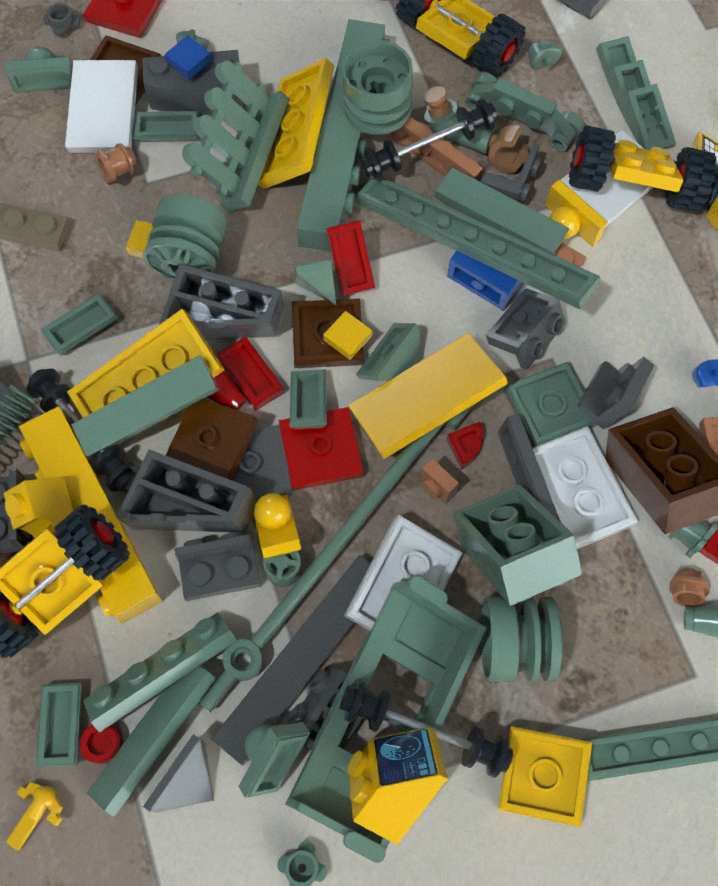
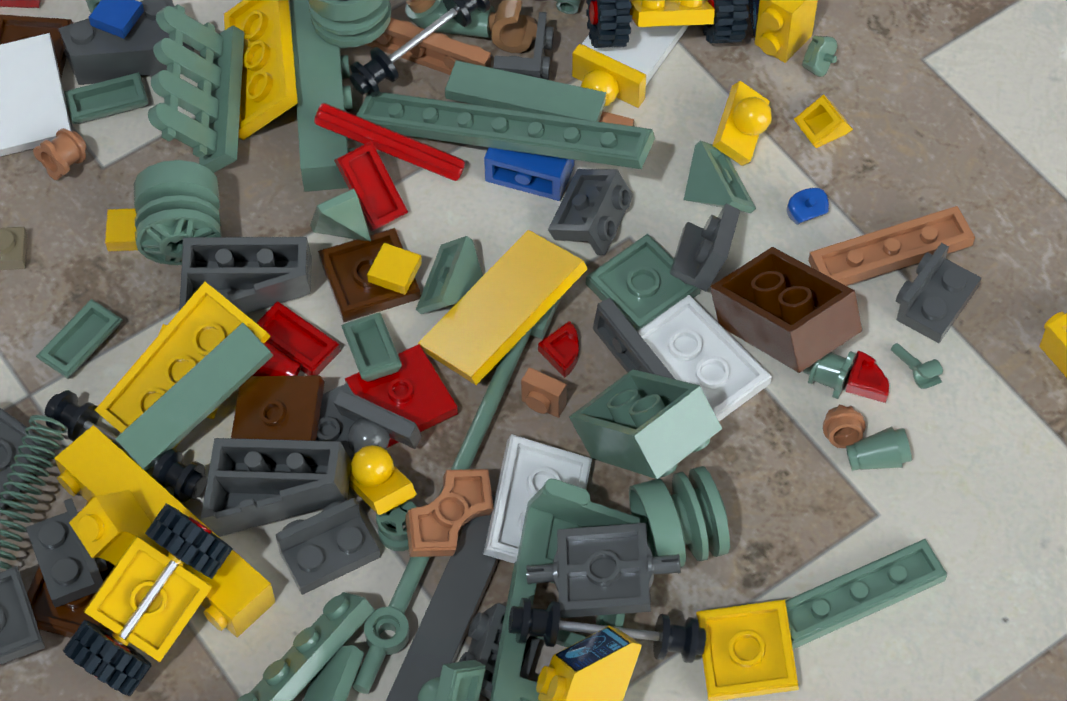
camera: 15 degrees left, 10 degrees down
(286, 473) = (374, 424): none -> dark grey tile
(310, 581) = (435, 527): none -> nougat tile
(376, 223) = (389, 141): none -> red axle
(439, 672) = (603, 570): none -> dark grey plate
(640, 329) = (715, 180): none -> sand green slope
(678, 282) = (742, 122): none -> yellow tile

